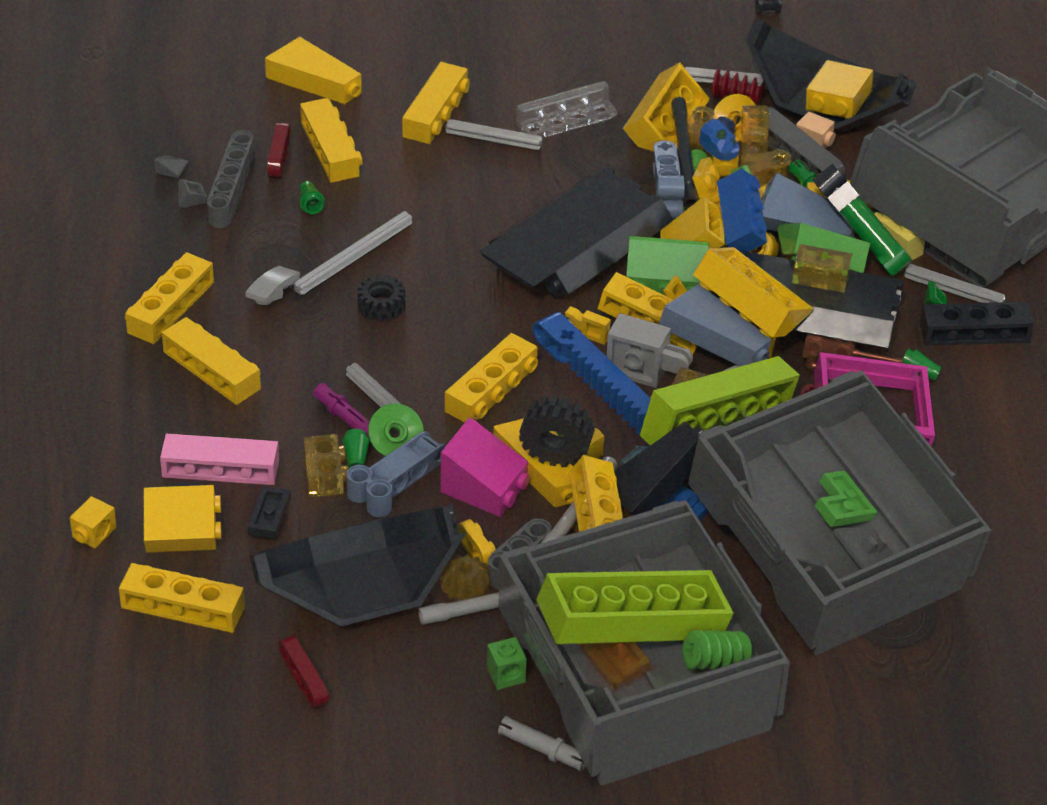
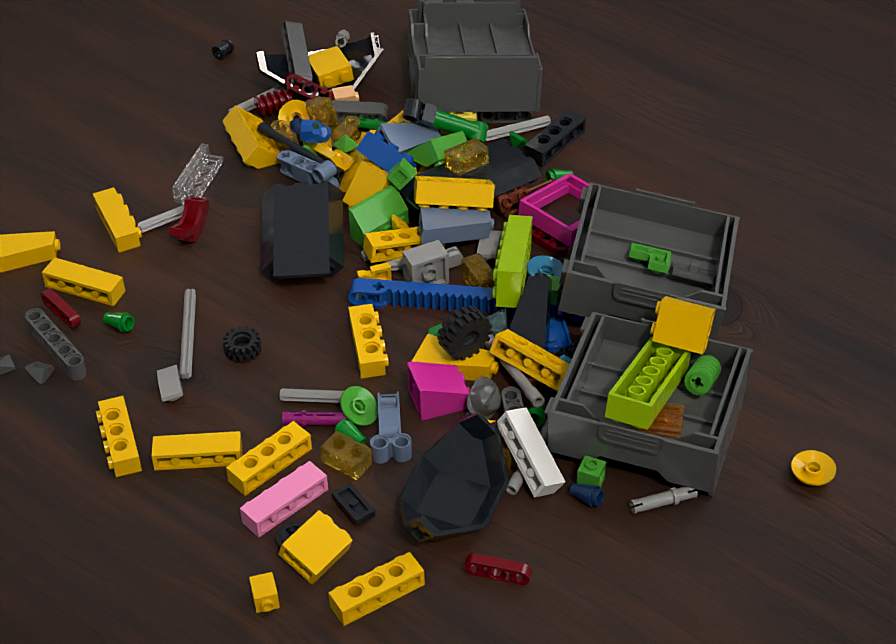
camera: 45 degrees left, 0 degrees up
(257, 414) = (269, 458): none -> yellow brick
(469, 593) = (530, 452): none -> white brick
(481, 680) = (589, 494): none -> dark blue cone
(495, 153) = (192, 219): none -> dark red arch
(512, 511) = (484, 397): none -> dark grey piece
(723, 235) = (401, 173): none -> bright green brick
(739, 578) = (682, 324): none -> yellow brick
(776, 78) = (299, 79): none -> dark red beam
(818, 51) = (296, 51): none -> dark grey beam
(890, 67) = (342, 34): none -> light grey pin

